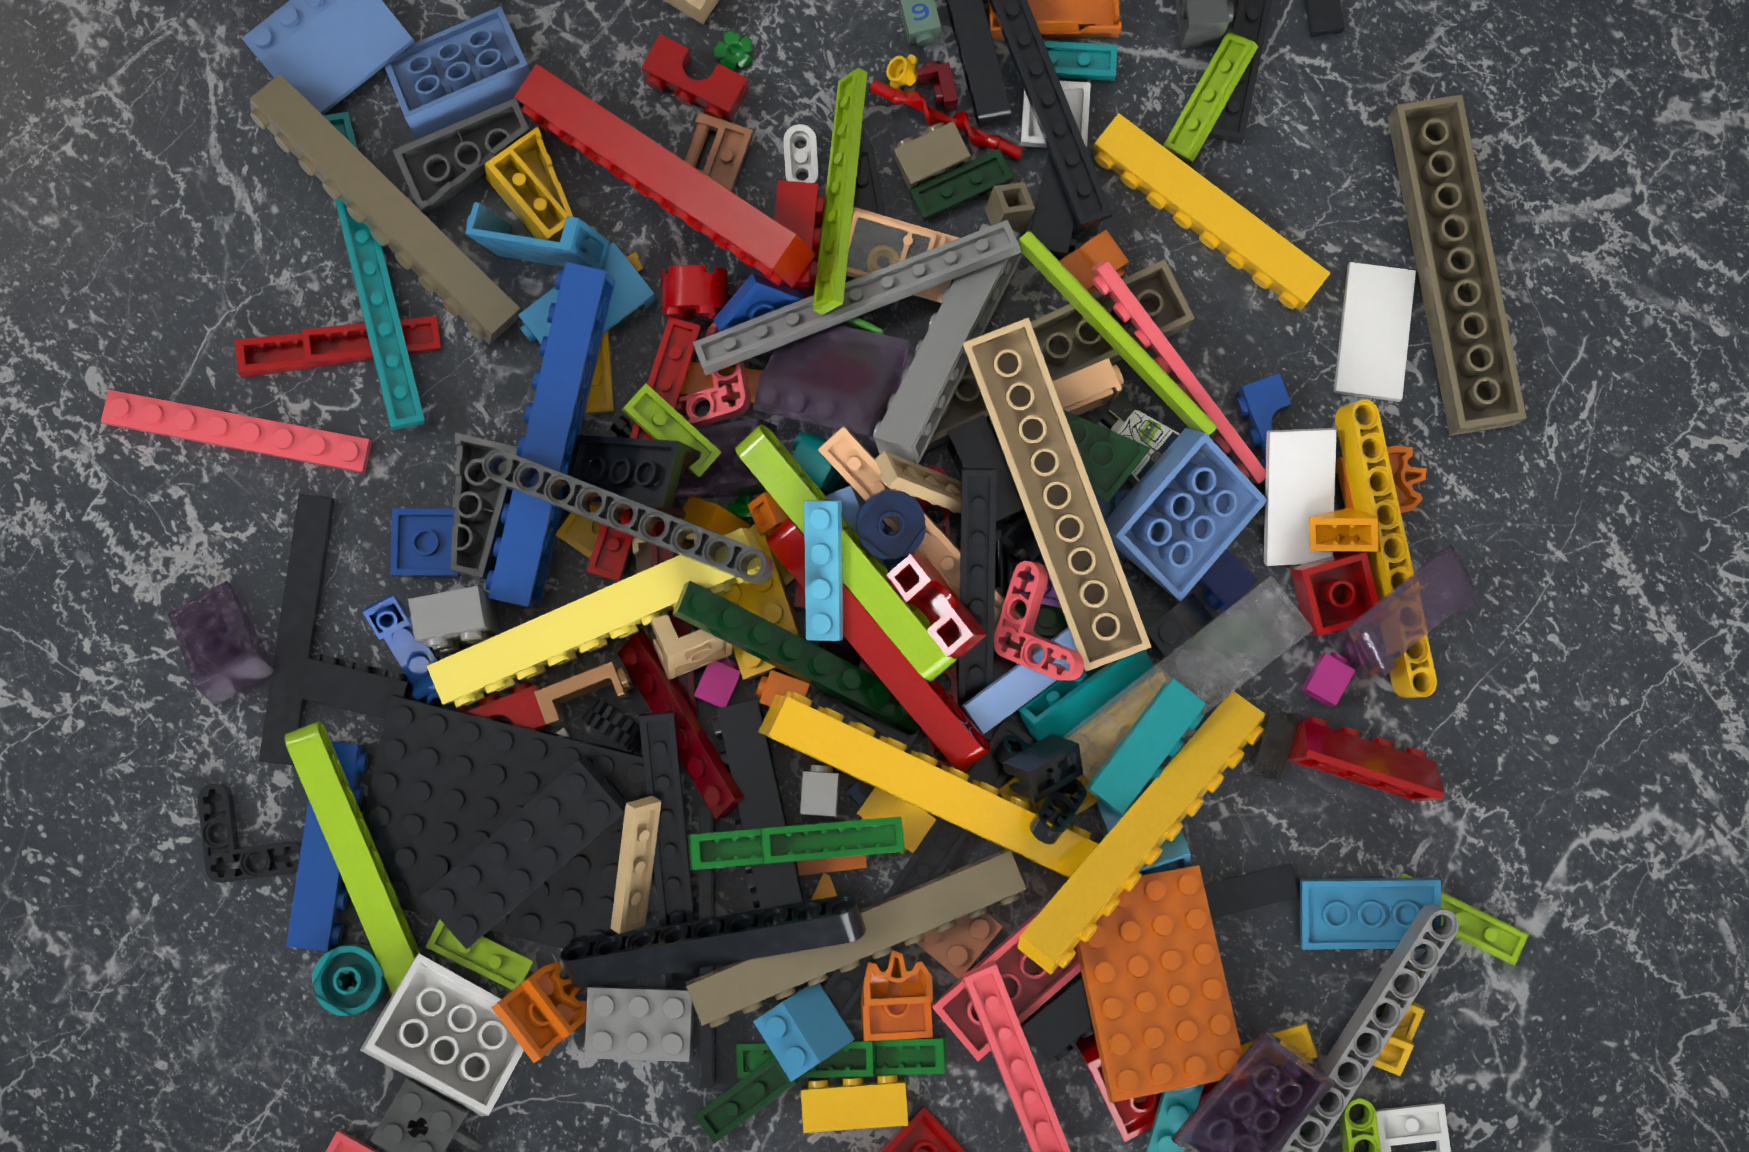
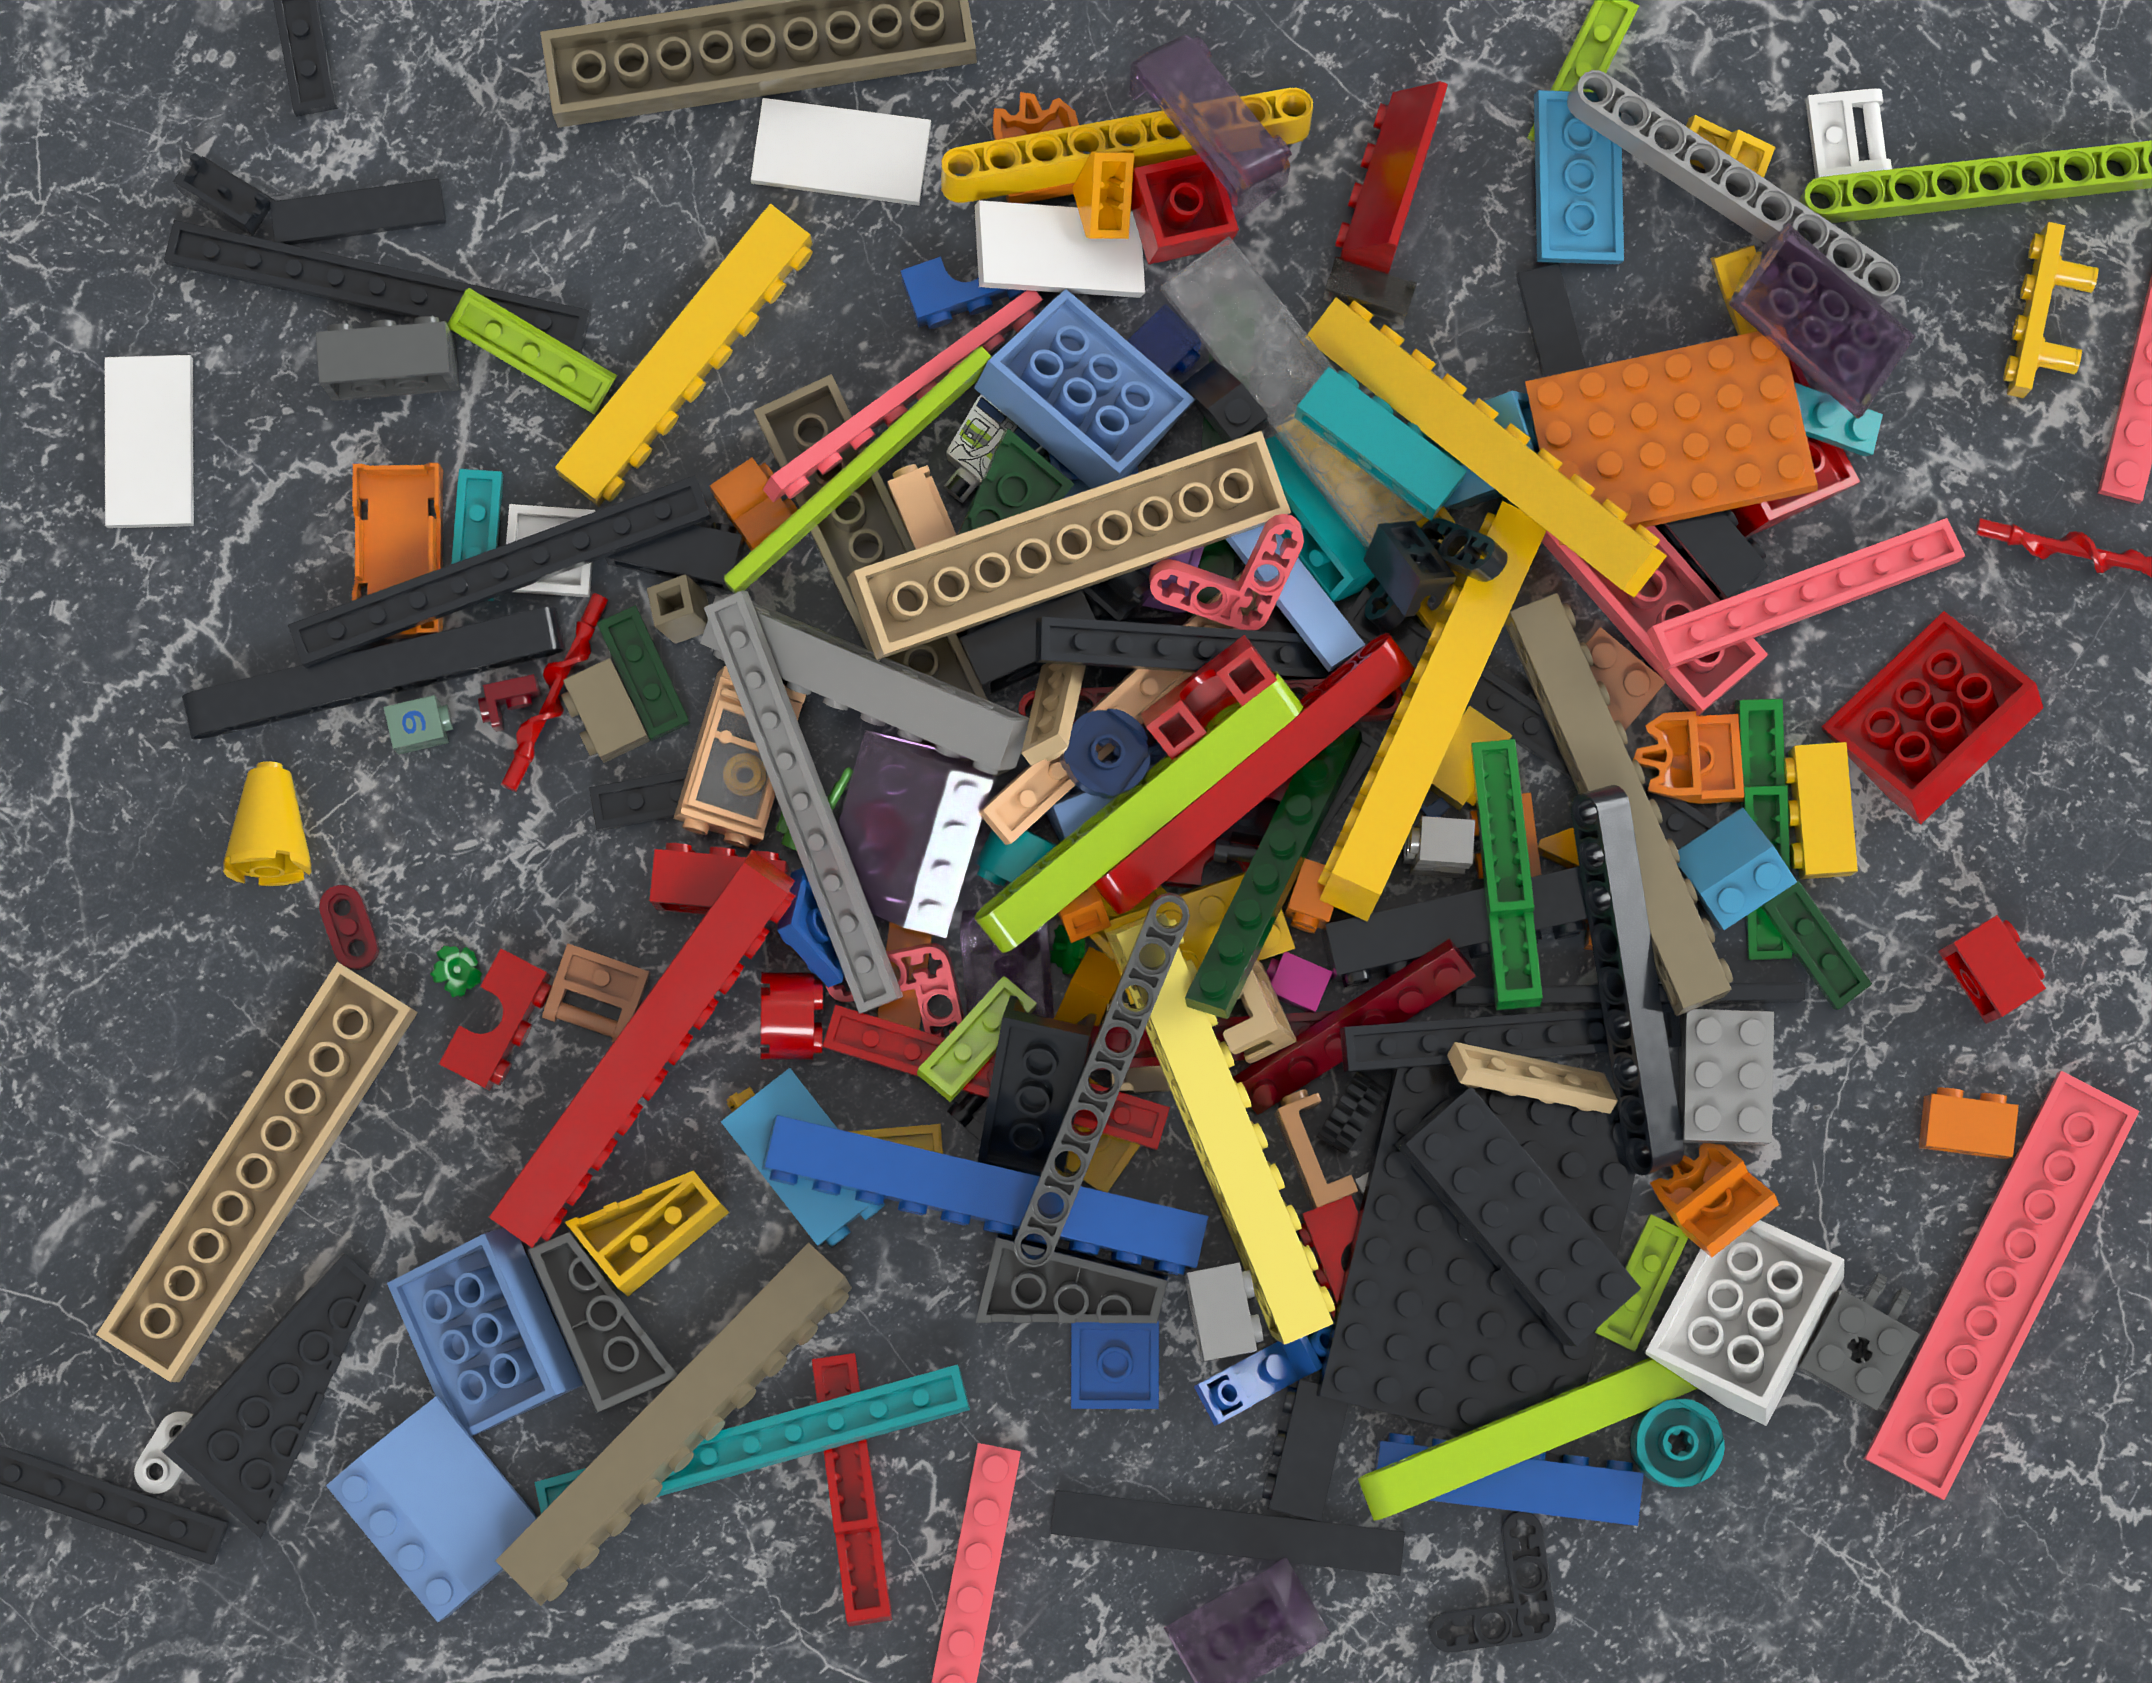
camera: 90 degrees left, 0 degrees up
(577, 244) = (738, 1154): dark azure panel -> none
(801, 159) = (605, 881): white plate -> none
(823, 570) = (1165, 836): medium azure plate -> none
(840, 192) = (659, 822): lime tile -> none
(902, 71) = (485, 757): yellow plate -> none
(1328, 679) = (1288, 220): dark pink brick -> none

